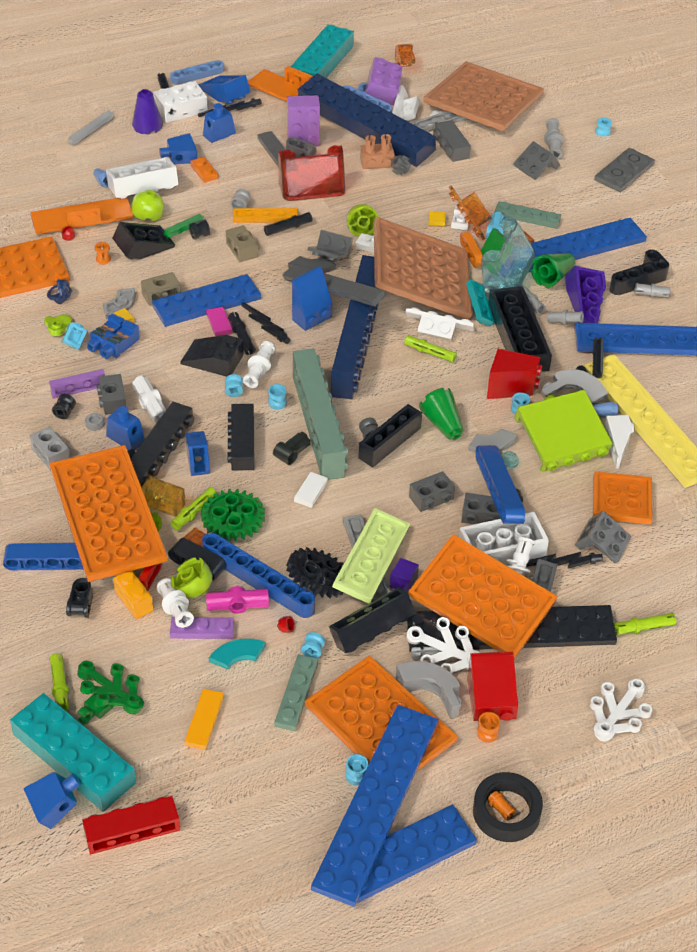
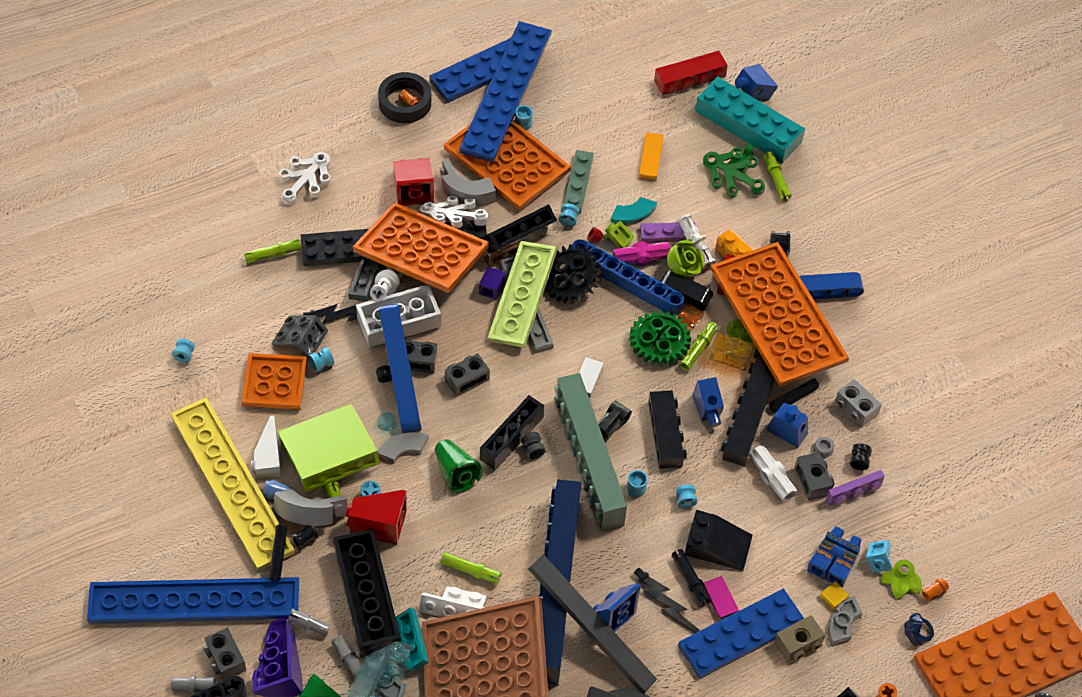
camera: 175 degrees right, 10 degrees up
(35, 314) = (940, 586): none -> orange pin
(259, 364) = (663, 524): white piece -> none
(261, 621) = (619, 234): none -> lime bracket
(488, 727) = (417, 150): orange wheel -> none
(578, 512) = (321, 359): none -> medium azure wheel
(630, 304) = (228, 652): none -> dark grey brick

